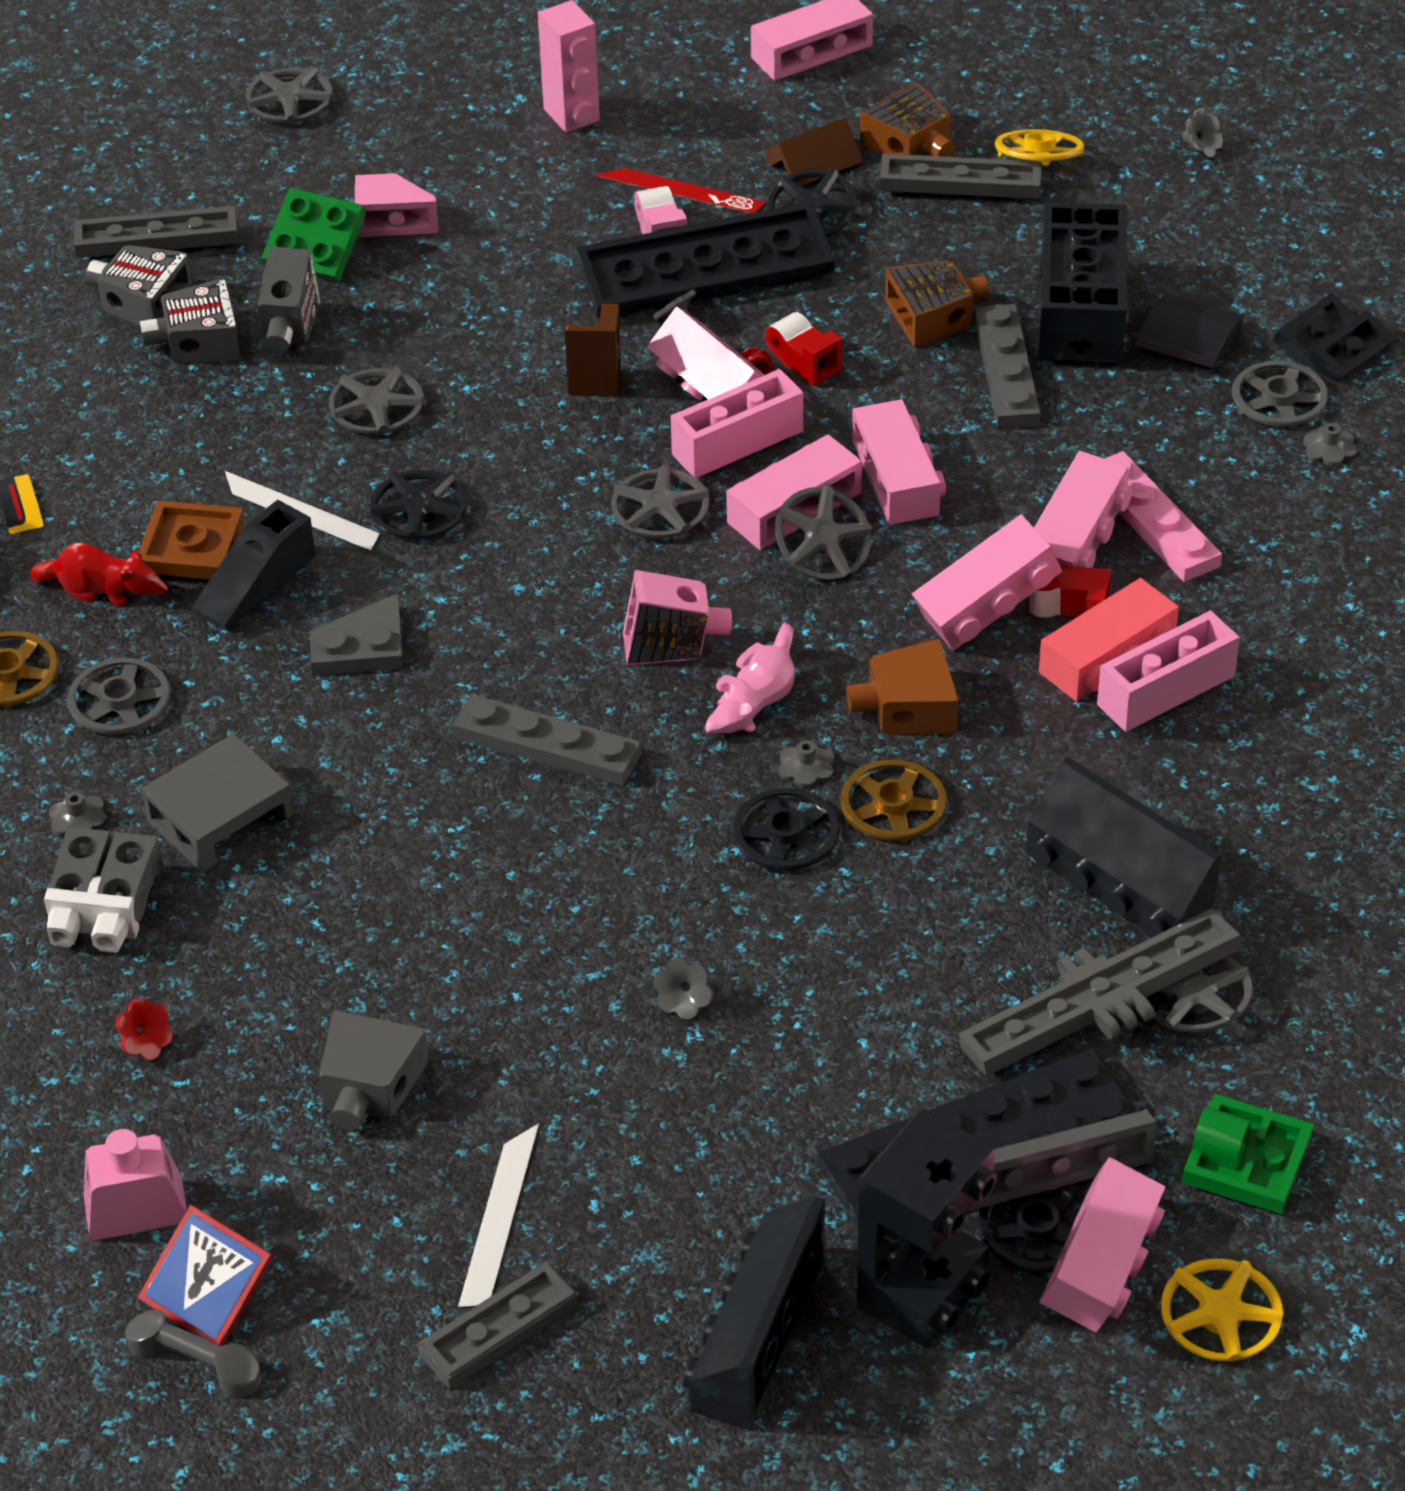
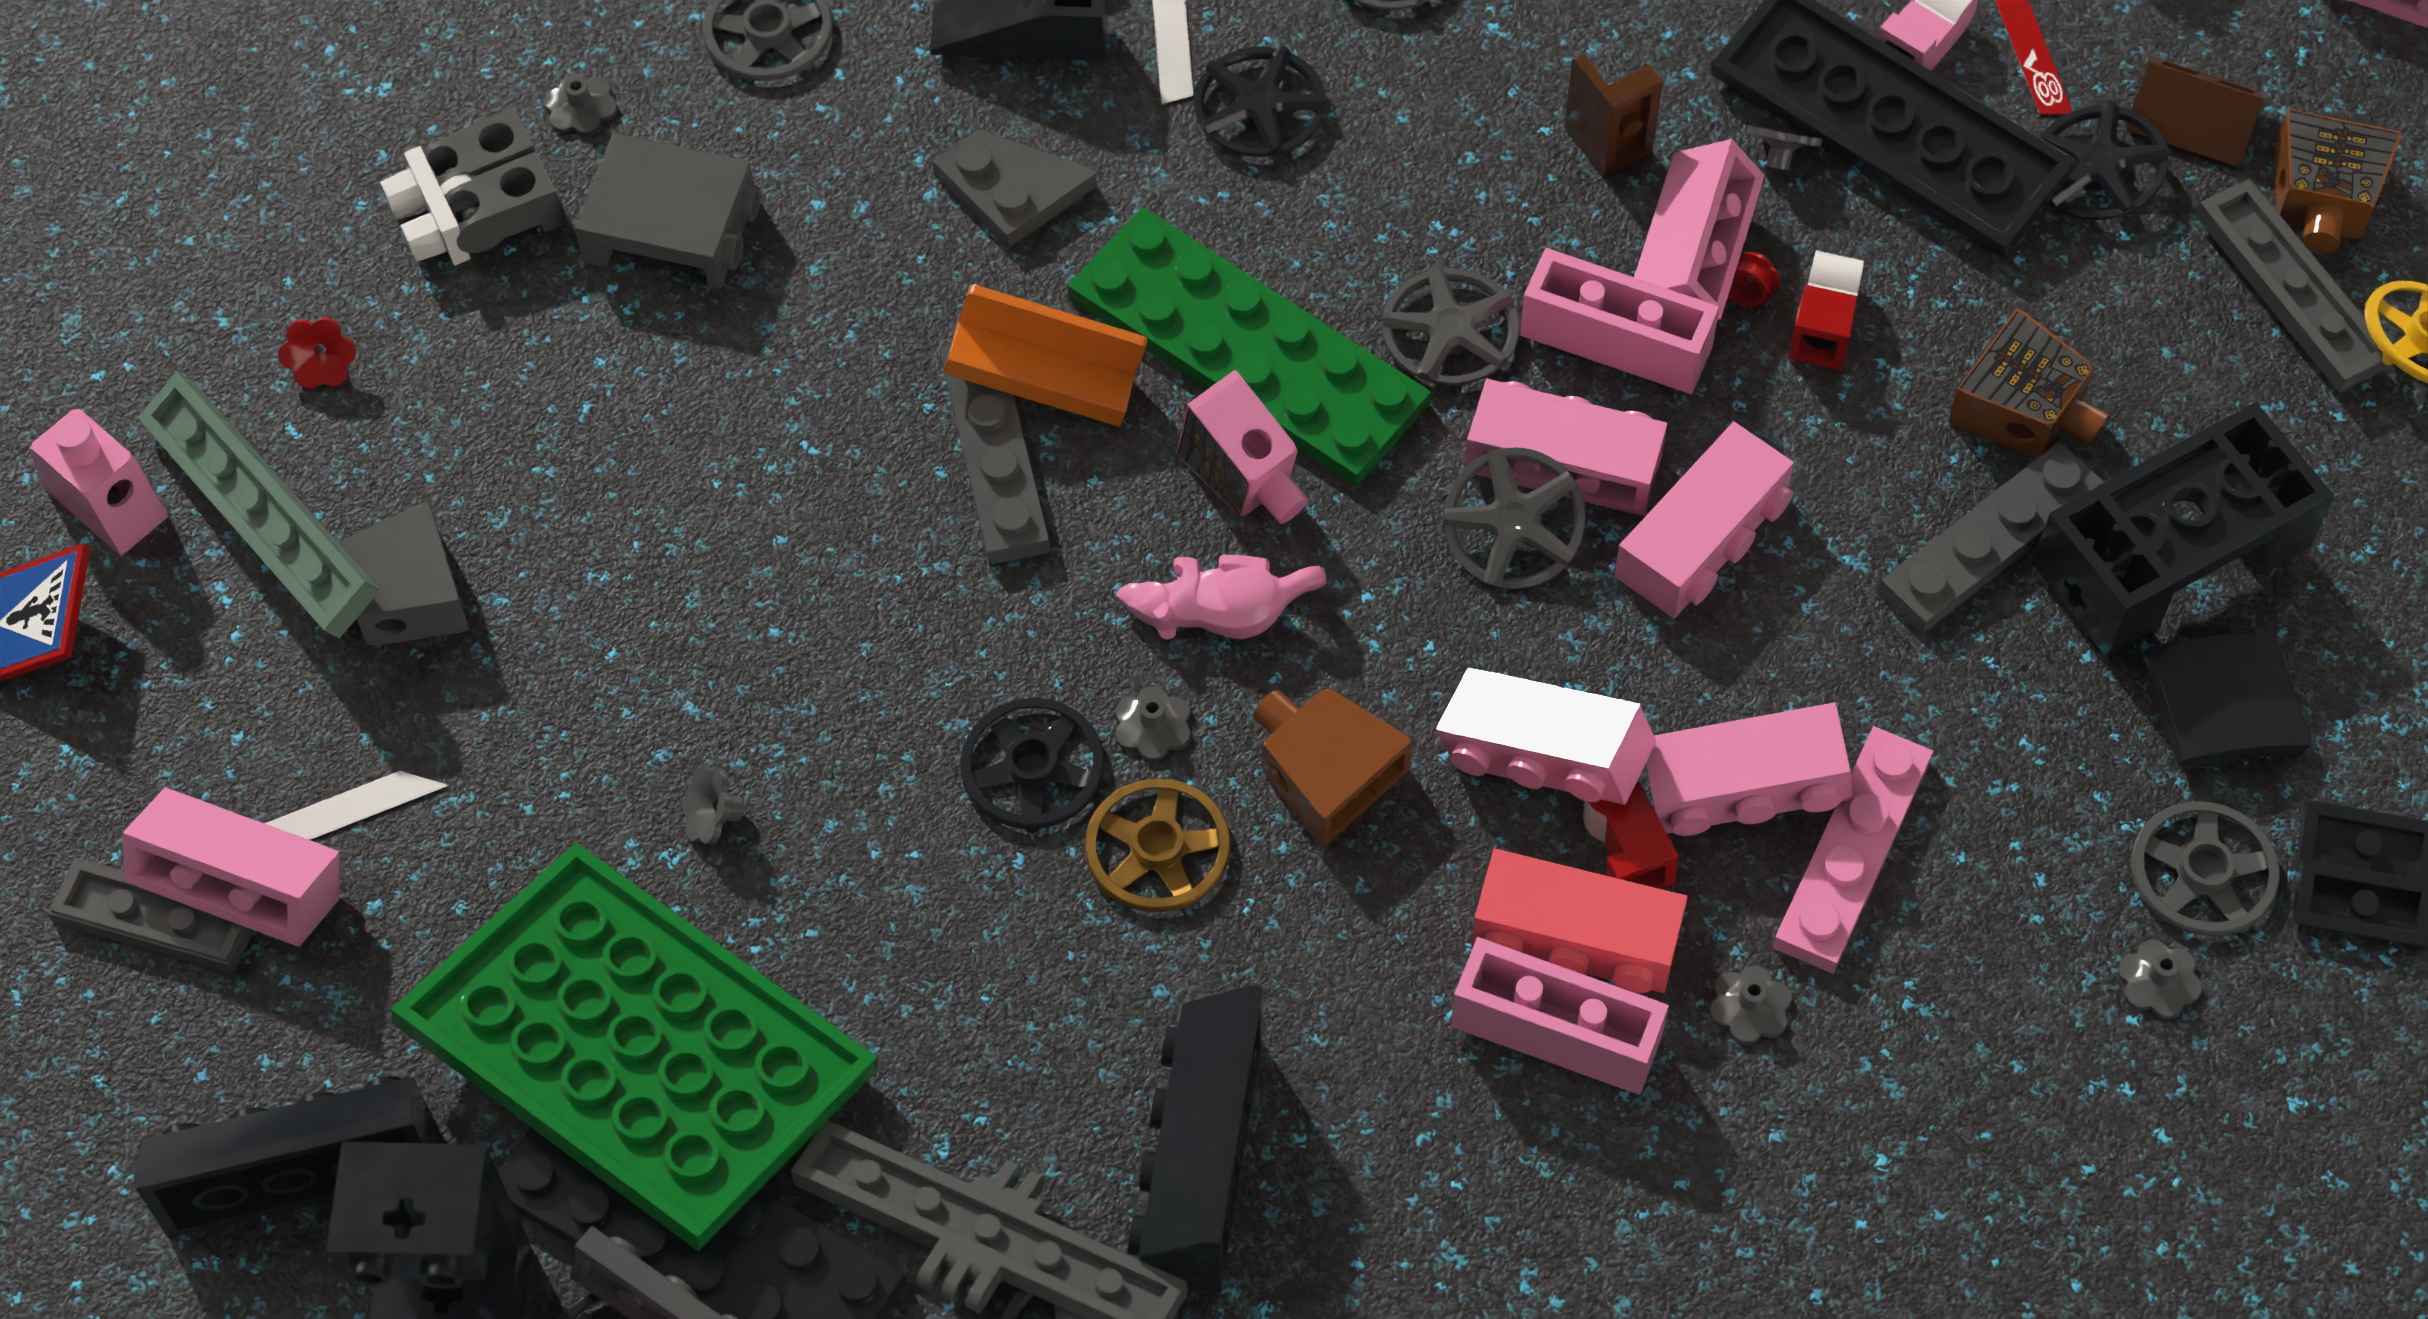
camera: 55 degrees right, 15 degrees up
(252, 1099) = (259, 505): none -> sand green plate
(515, 669) = (1045, 355): none -> orange panel
(515, 1246) = (231, 866): none -> bright pink brick
(571, 593) = (1218, 319): none -> green plate
(825, 1094) = (635, 1044): none -> green plate
(1214, 599) = (1750, 1015): none -> dark grey plant

